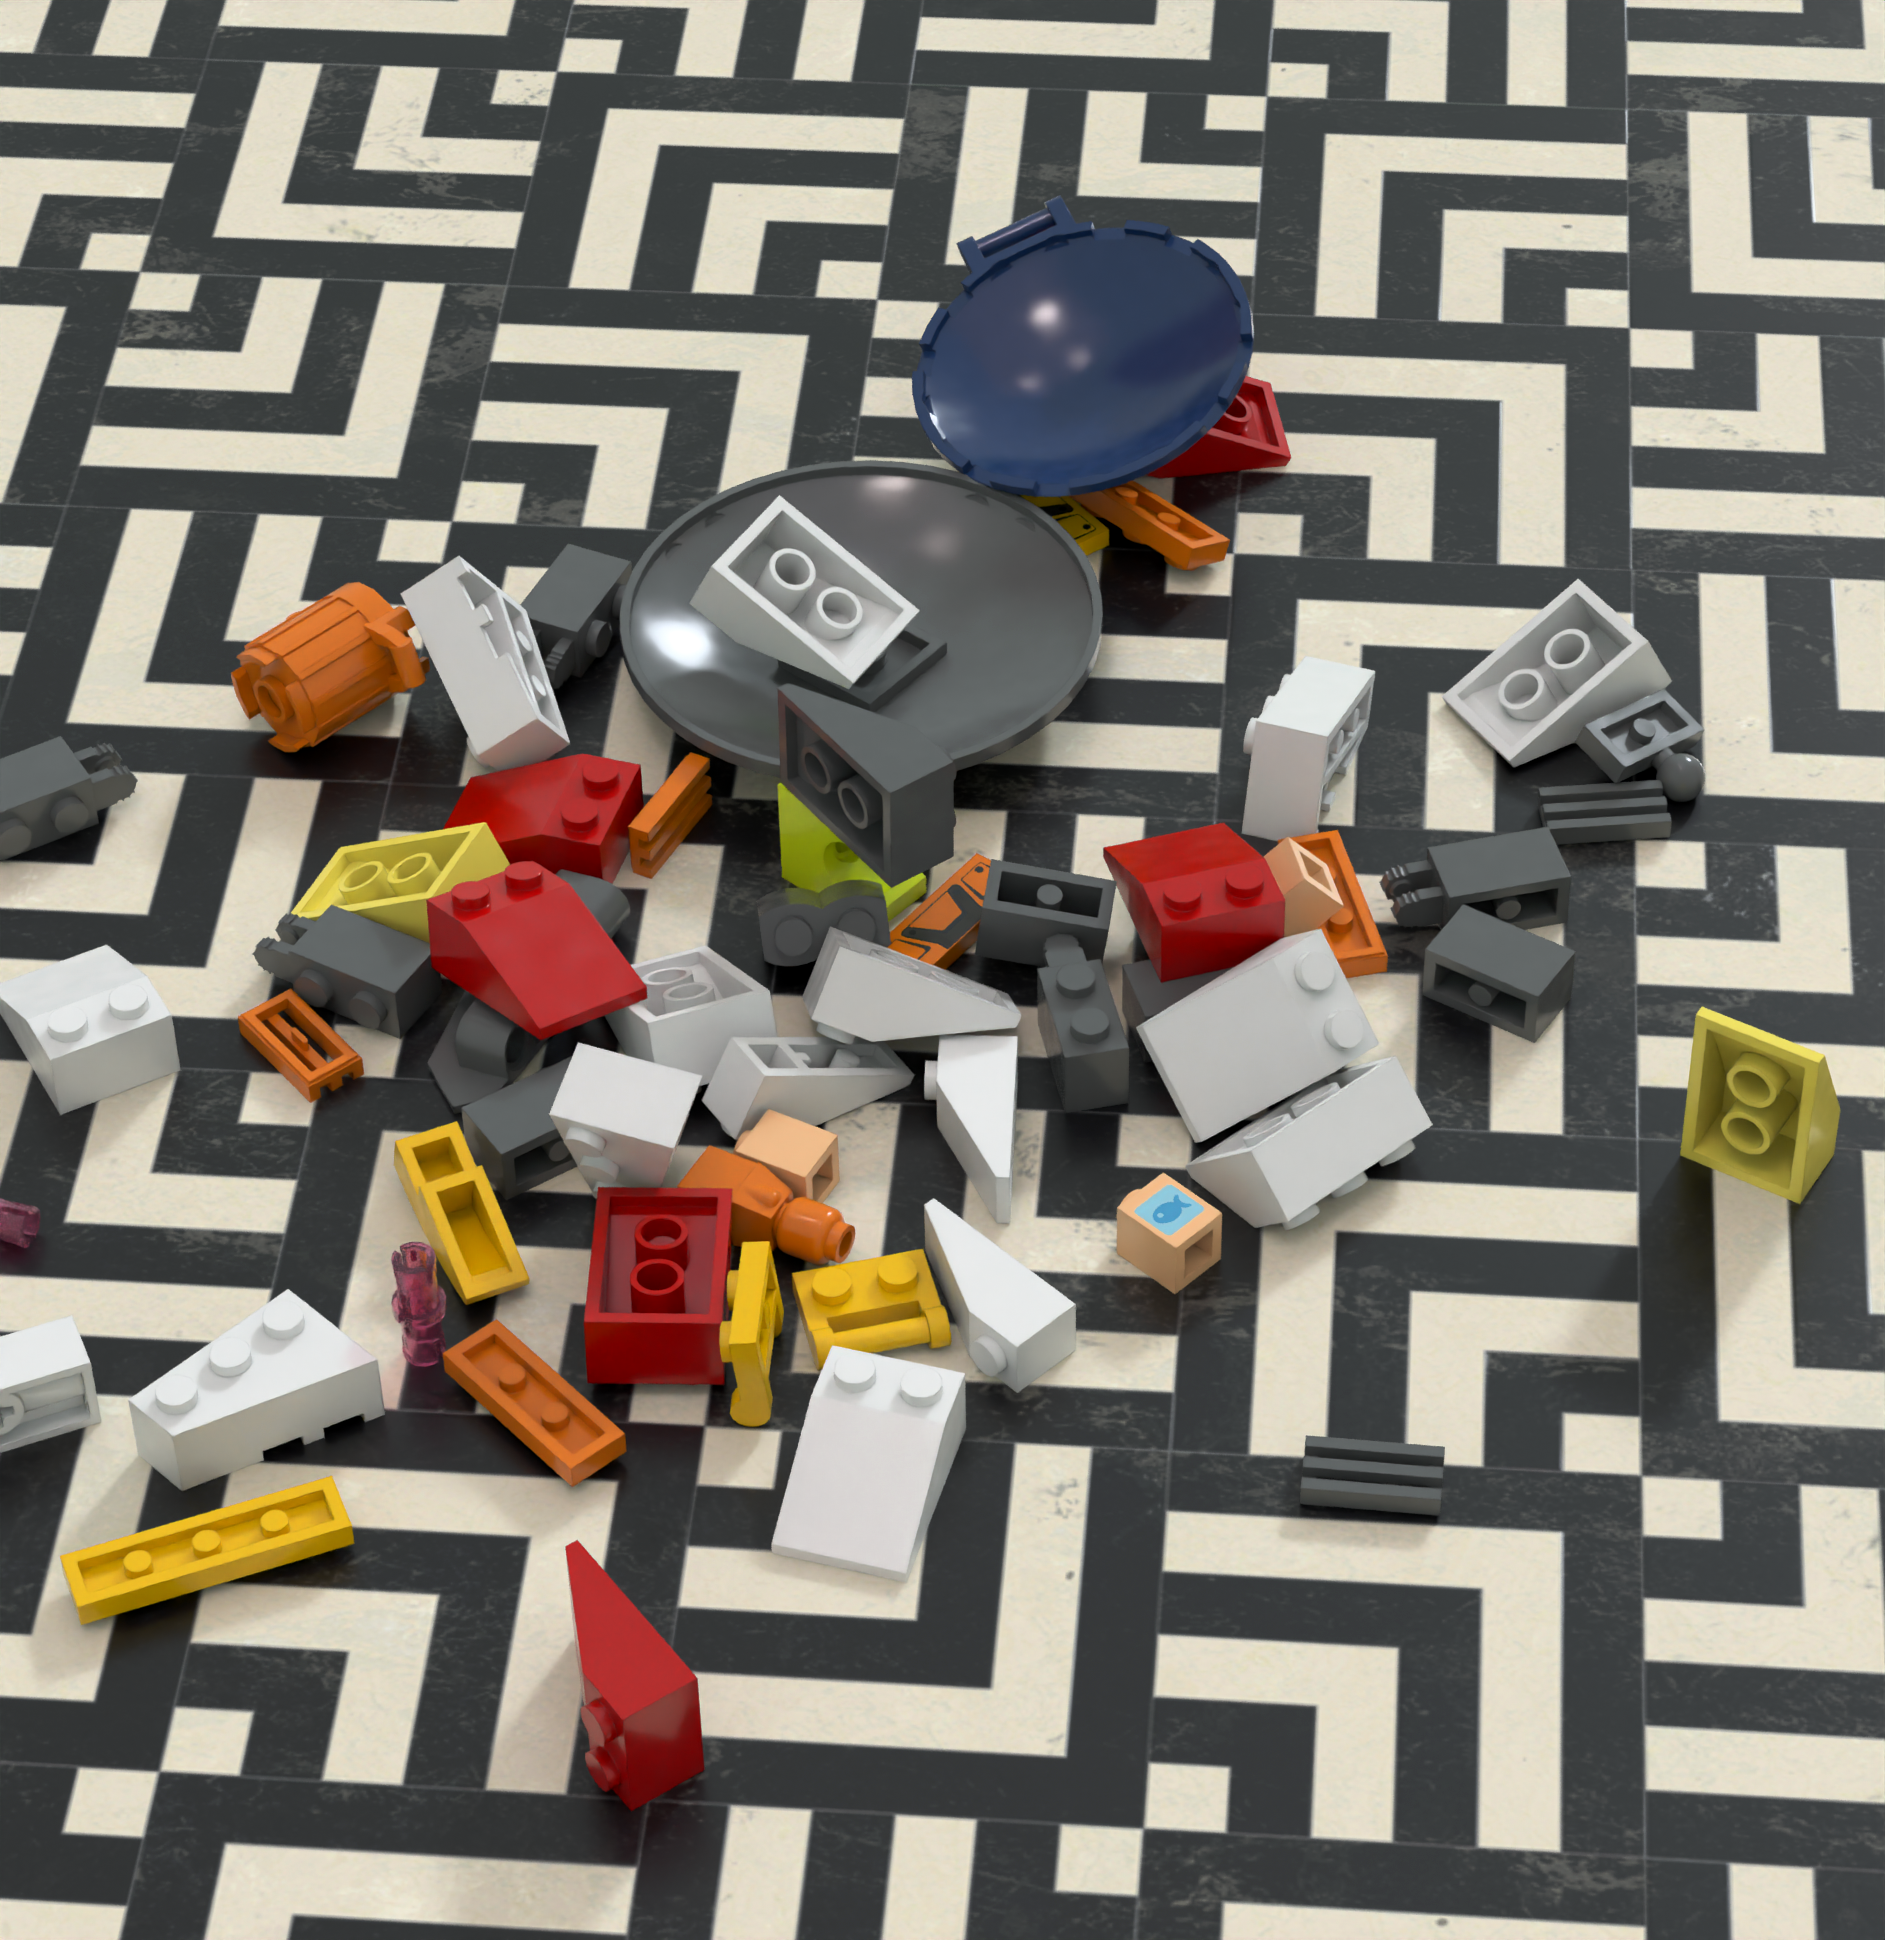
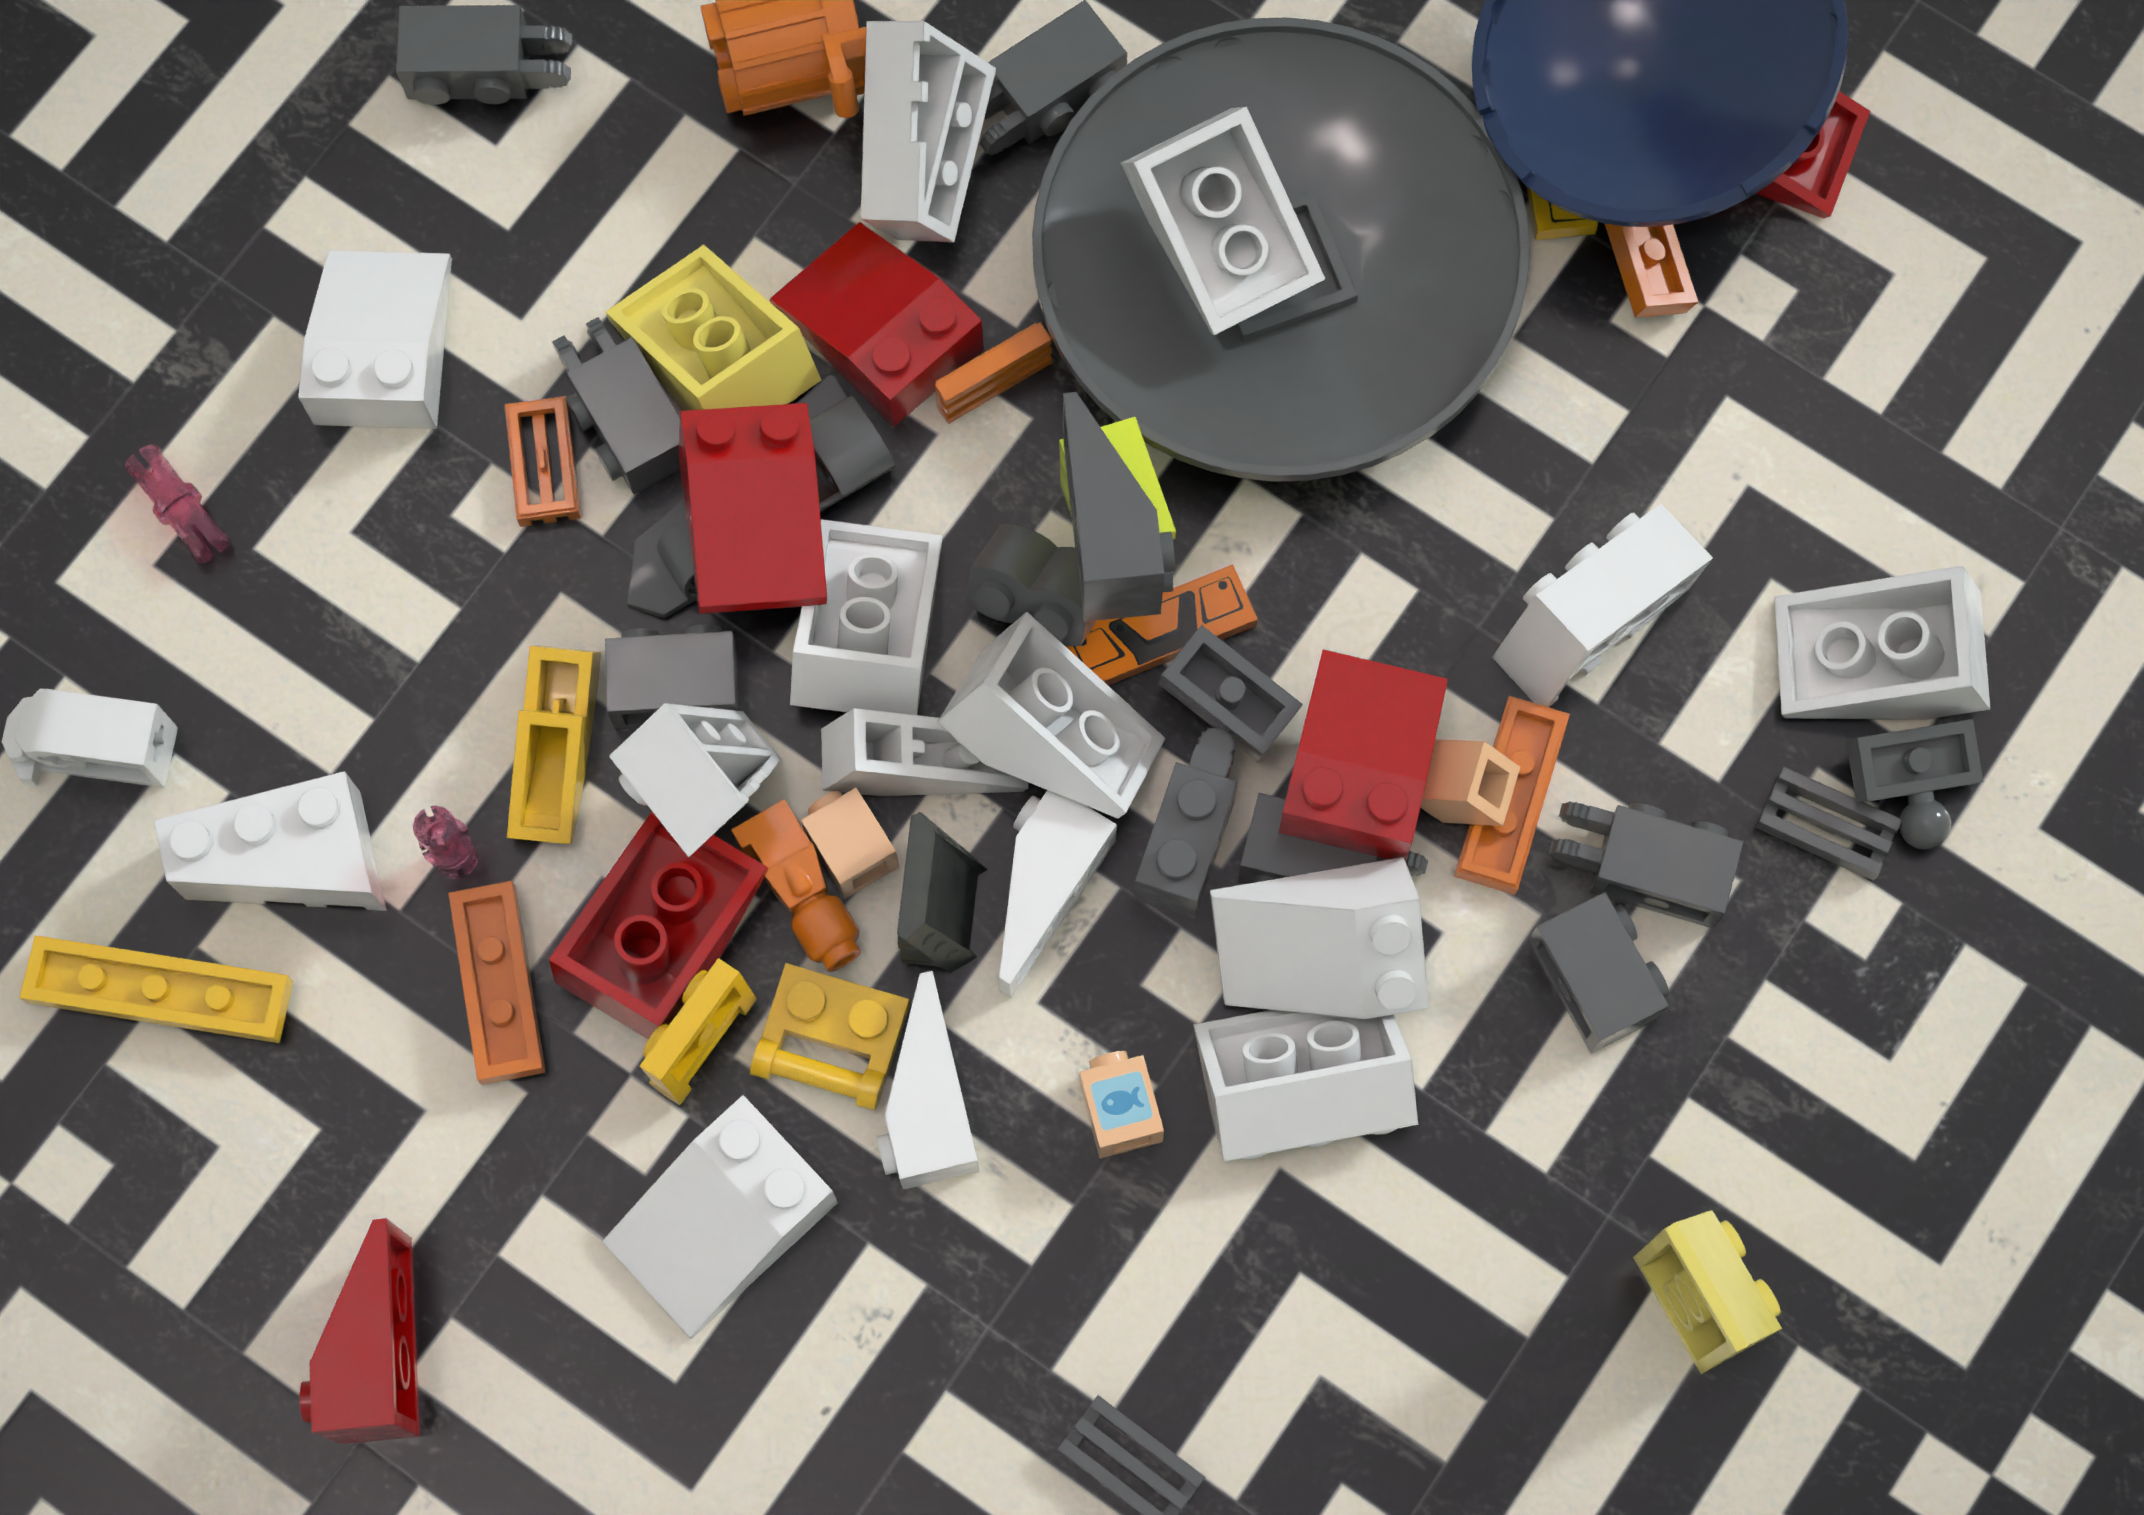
camera: 30 degrees right, 30 degrees up
(886, 1154) = (937, 898): none -> pearl dark grey slope

